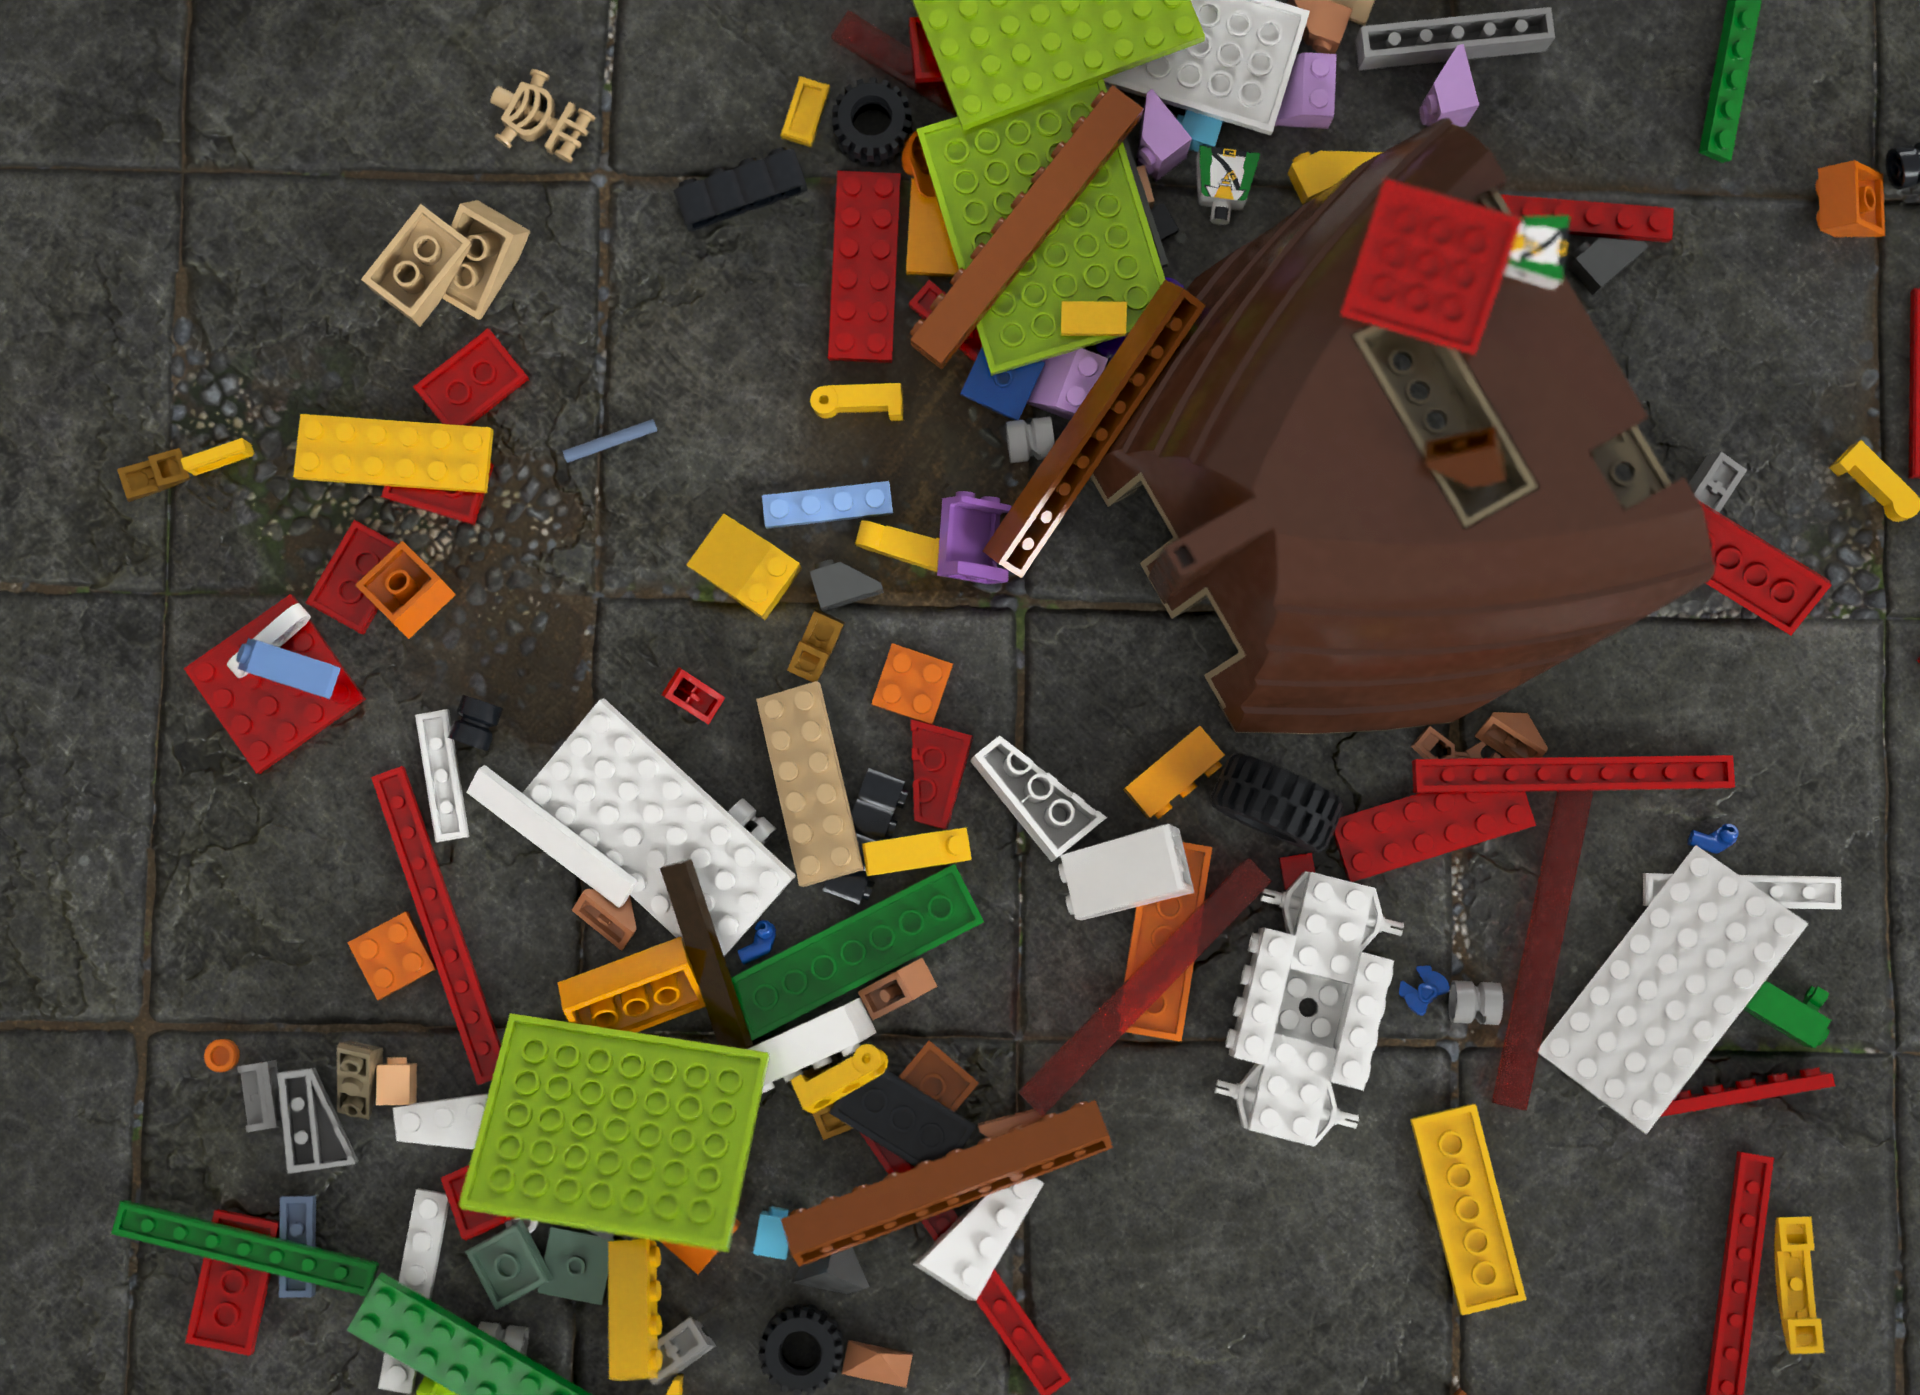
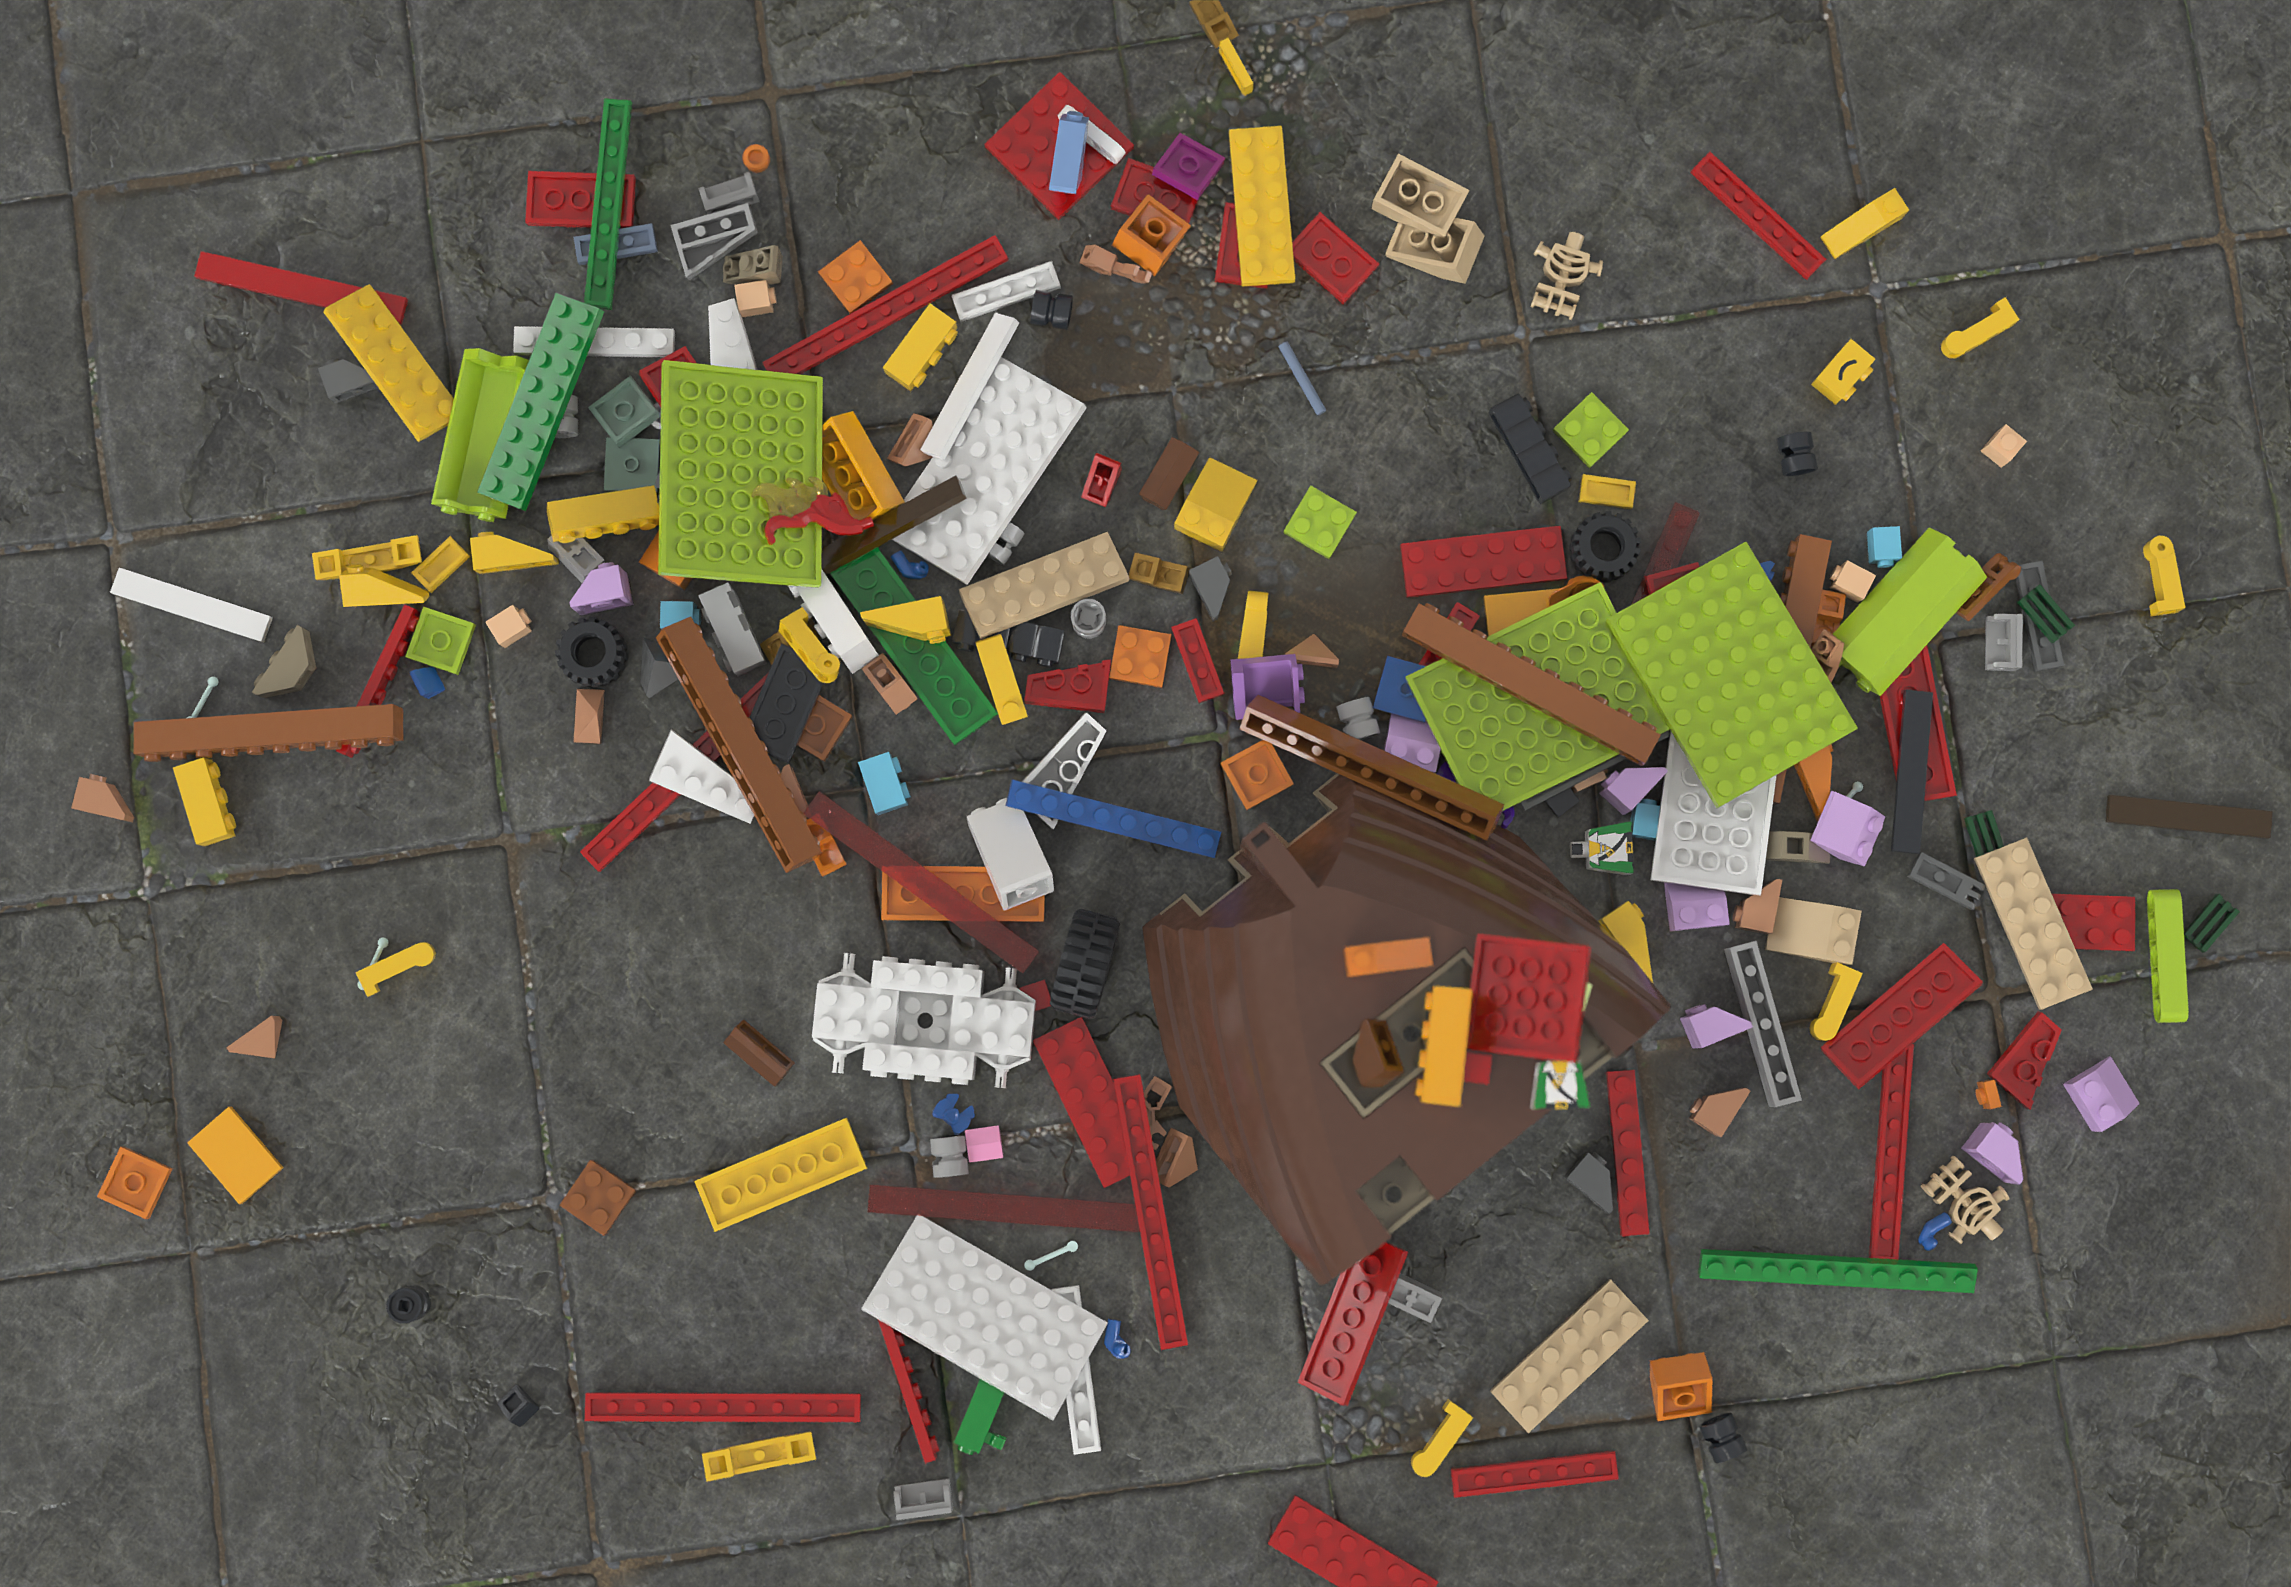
camera: 85 degrees right, 0 degrees up
(329, 532) = (1188, 166): none -> magenta plate
(429, 650) = (1106, 263): none -> nougat piece
(494, 888) = (921, 348): none -> yellow brick
(666, 1058) = (807, 504): none -> piece
(699, 614) = (1168, 473): none -> reddish brown piece
(727, 1323) = (603, 590): none -> lavender slope
(729, 118) = (1590, 430): none -> lime plate
(786, 447) = (1319, 522): none -> lime plate
(802, 1171) = (732, 629): none -> light grey wedge
(827, 504) = (1278, 563): light blue plate -> none
(829, 941) = (916, 619): none -> yellow slope
(836, 399) = (1365, 553): yellow leg -> none
(858, 737) = (1088, 618): none -> light grey wheel
(928, 616) = (1197, 660): none -> red plate
(941, 478) = (1314, 652): none -> nougat slope
(1017, 1013) = (884, 783): none -> medium azure brick
(1075, 568) = (1257, 774): none -> orange plate
(1088, 1091) = (831, 857): none -> orange slope
(1093, 318) = (1464, 753): yellow tile -> none
(1104, 746) = (1113, 818): none -> blue plate
(1175, 773) = (1099, 881): light orange brick -> none
(1319, 1214) = (759, 1053): none -> reddish brown piece
(1352, 427) = (1387, 956): none -> orange slope
(1466, 959) = (984, 1144): none -> bright pink piece
(1473, 372) = (1445, 1045): none -> light orange slope
(1499, 344) = (1477, 1068): none -> red tile
(1542, 105) = (1717, 1110): none -> nougat slope
(1597, 874) = (1071, 1246): none -> light aqua hinge
(1799, 322) = (1569, 1355): none -> tan plate
(1872, 1095) = (923, 1499): none -> light grey hinge

